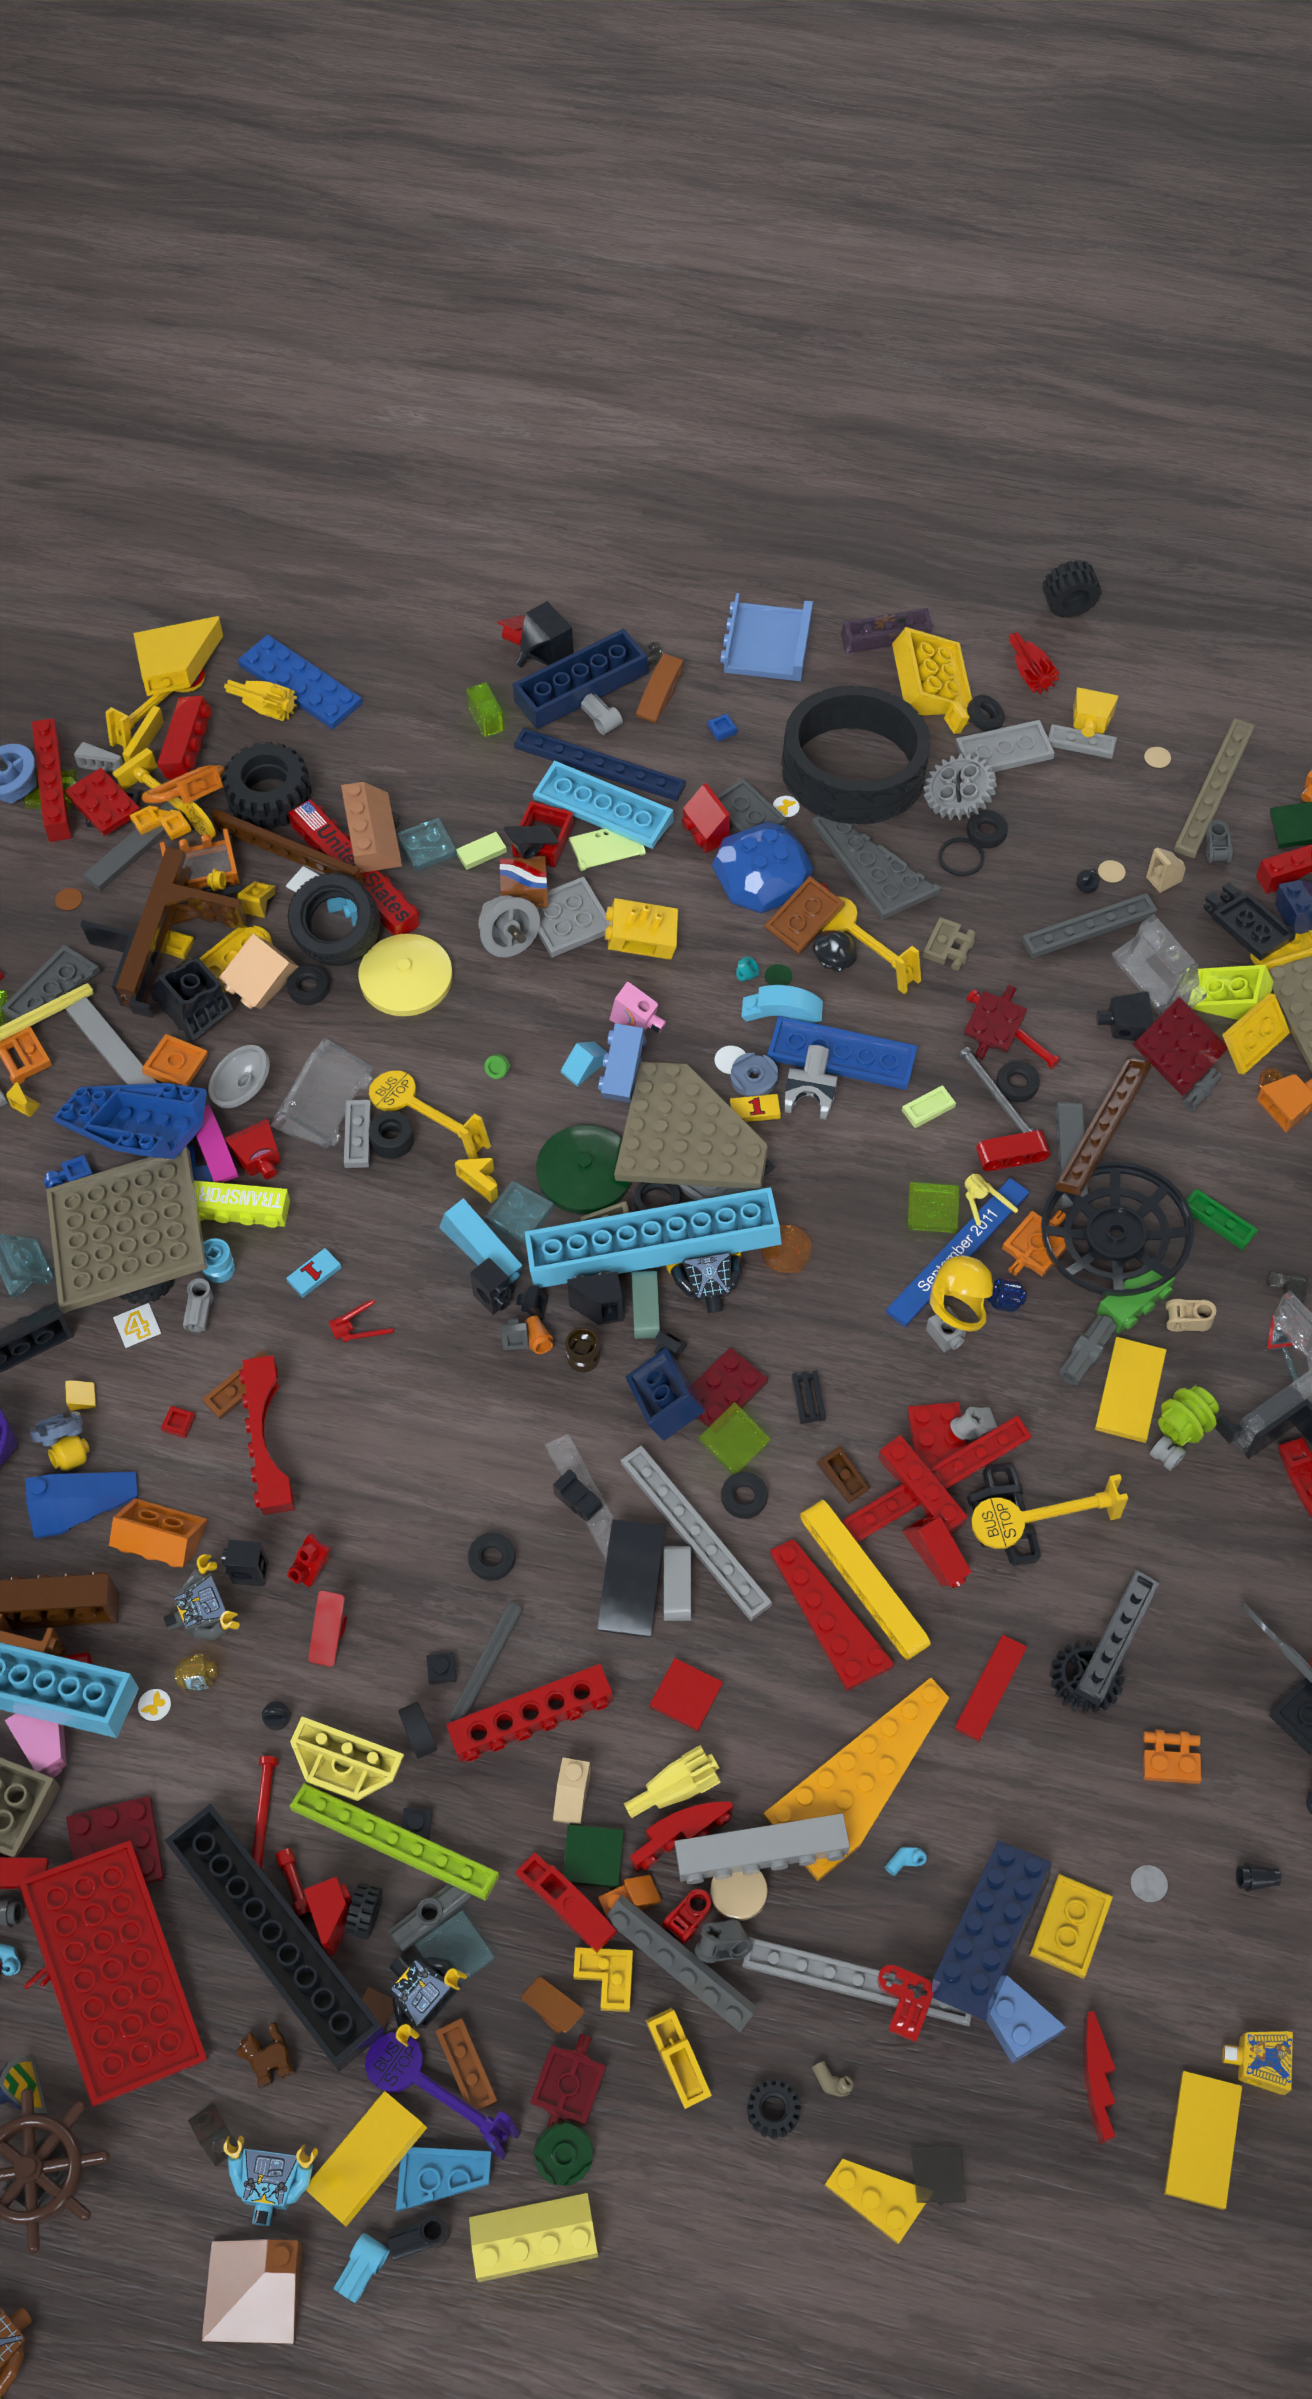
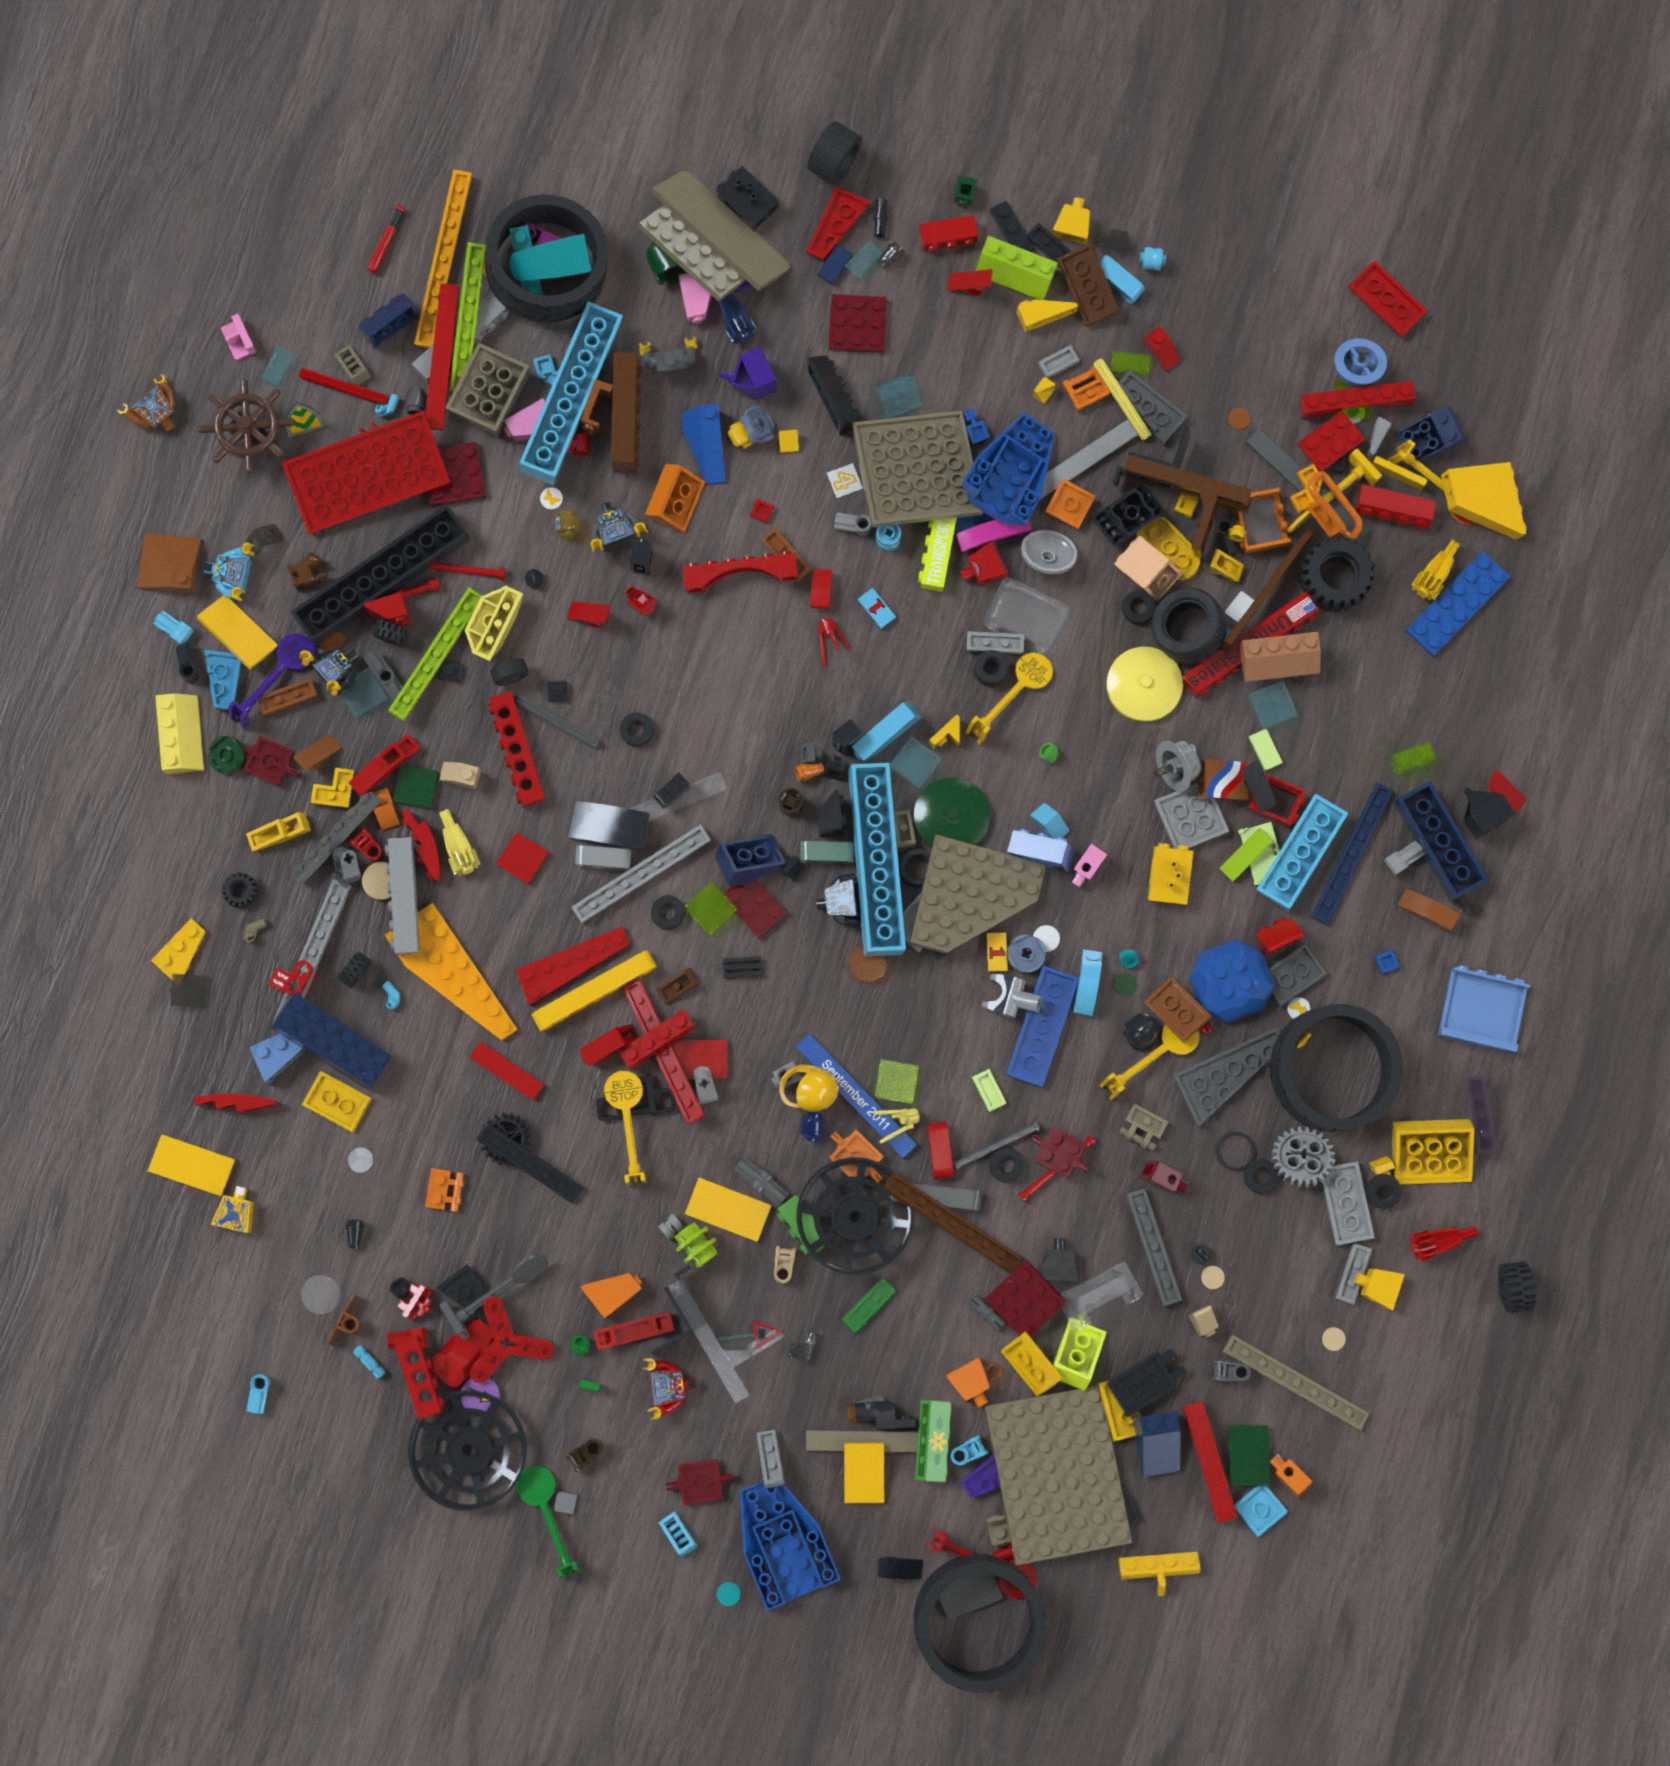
camera: 90 degrees right, 20 degrees up
(90, 701) = (1434, 434): none -> dark blue slope
(290, 1337) = (821, 589): none -> red slope
(610, 858) = (1246, 854): none -> lime tile
(877, 1912) = (354, 969): none -> black tyre
(1010, 909) = (1158, 1173): none -> dark red torso
(1269, 1518) = (612, 1292): none -> orange slope

